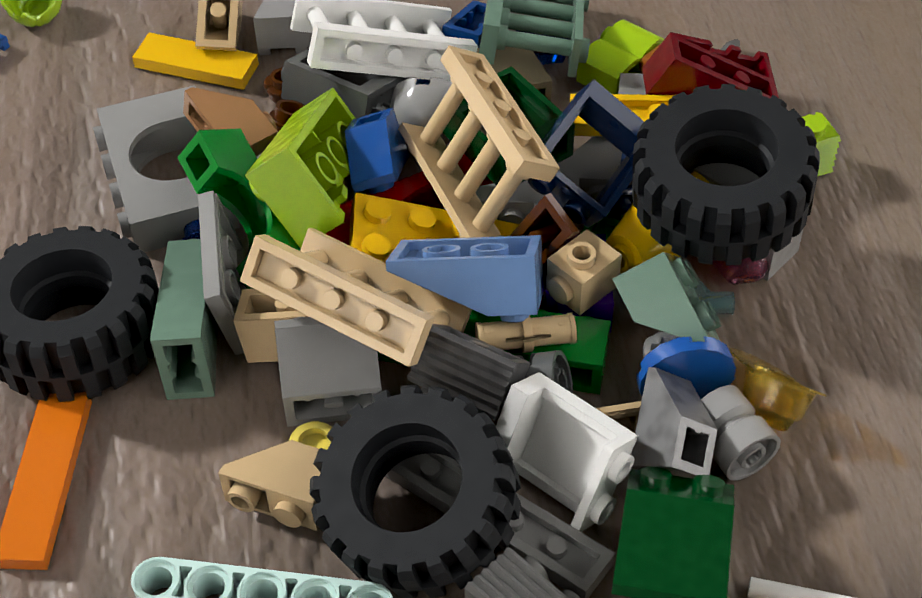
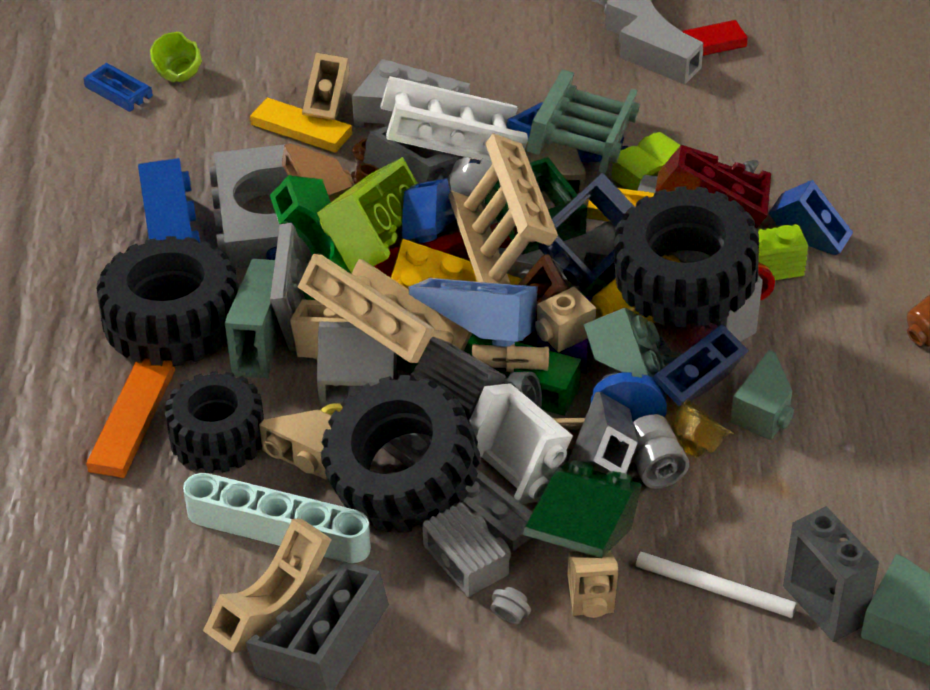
camera: 10 degrees right, 5 degrees down
(45, 181) = (165, 200): none -> blue wedge
(162, 507) = (214, 421): none -> black tyre
(762, 310) = (701, 366): none -> dark blue slope
(823, 90) = (815, 215): none -> blue slope
(844, 340) = (764, 399): none -> sand green slope

